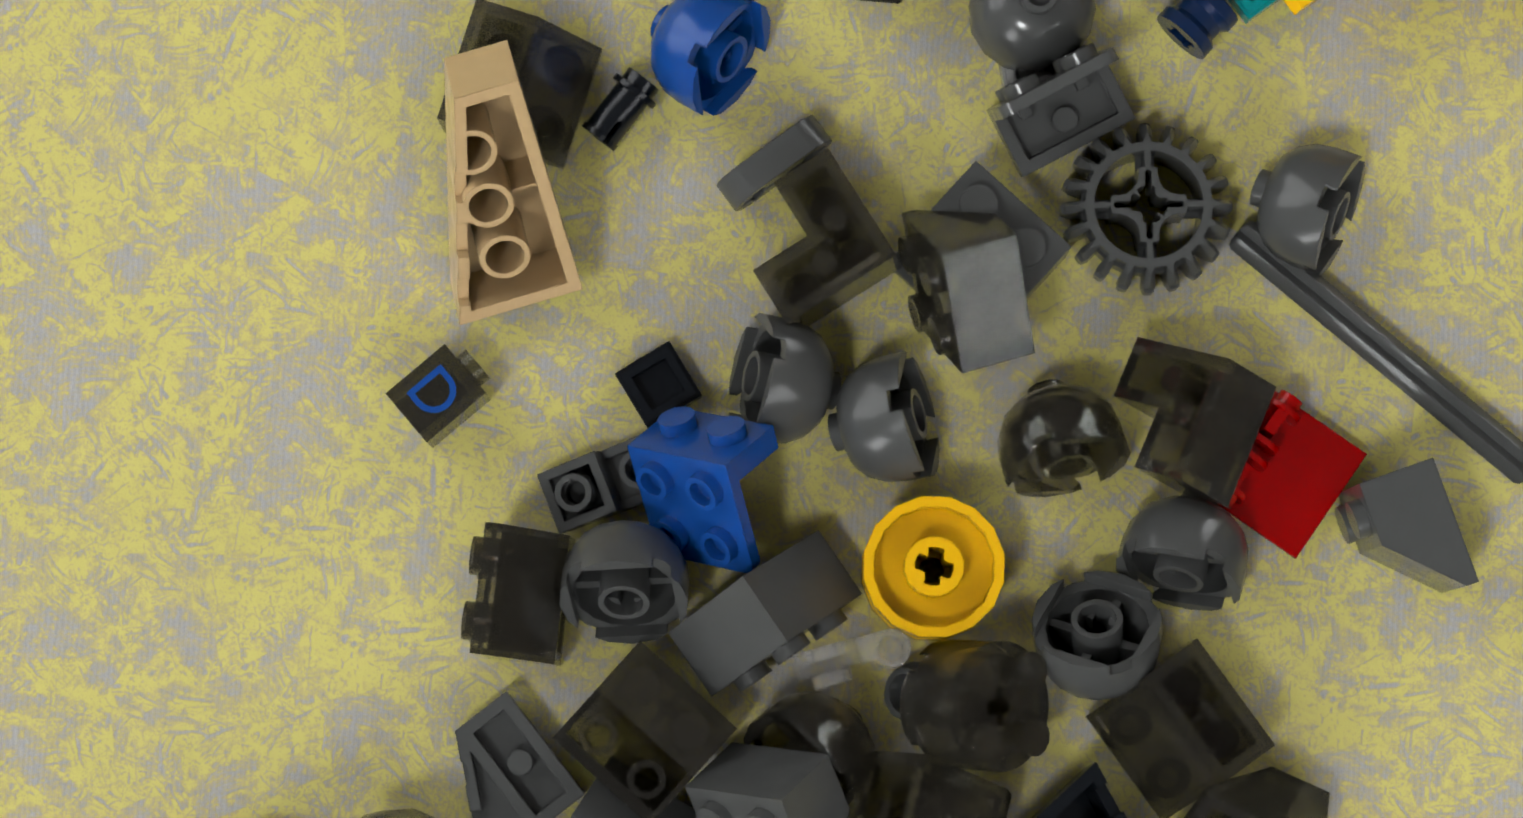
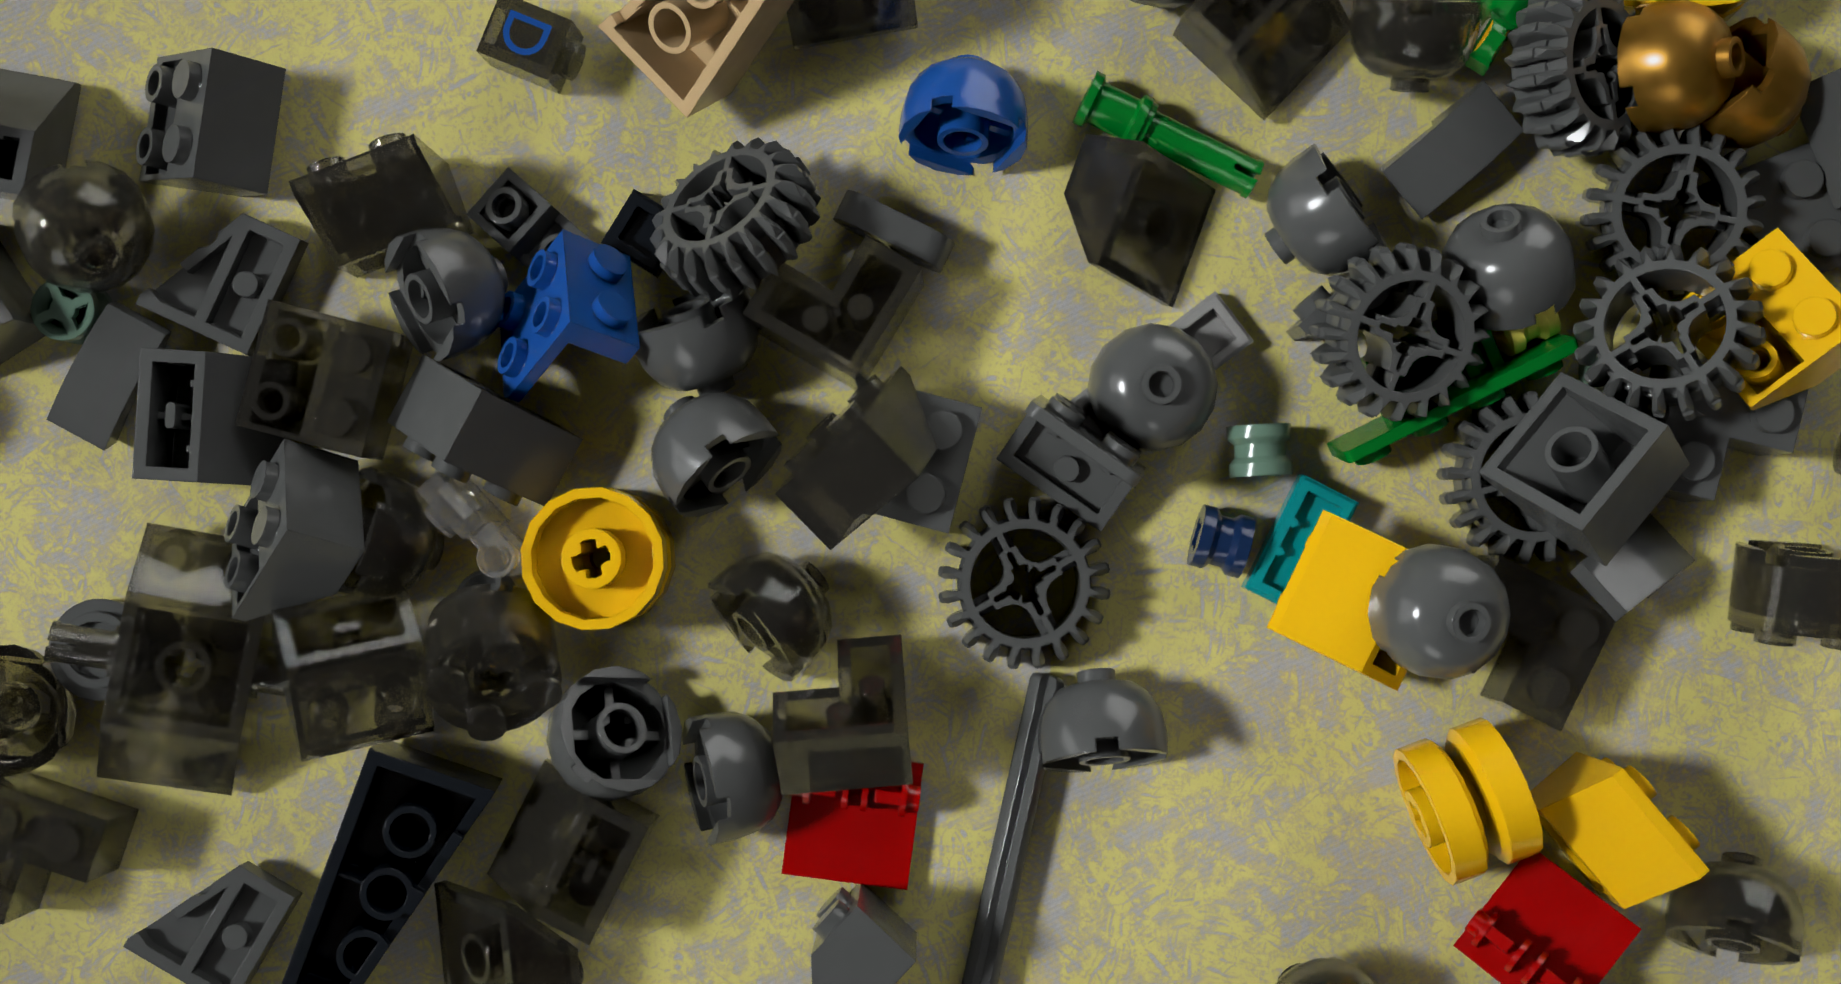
camera: 65 degrees right, 5 degrees up
(357, 720) = (211, 122): none -> dark grey slope
(621, 108) = (873, 70): black pin -> none
(698, 289) = (735, 219): none -> dark grey gear

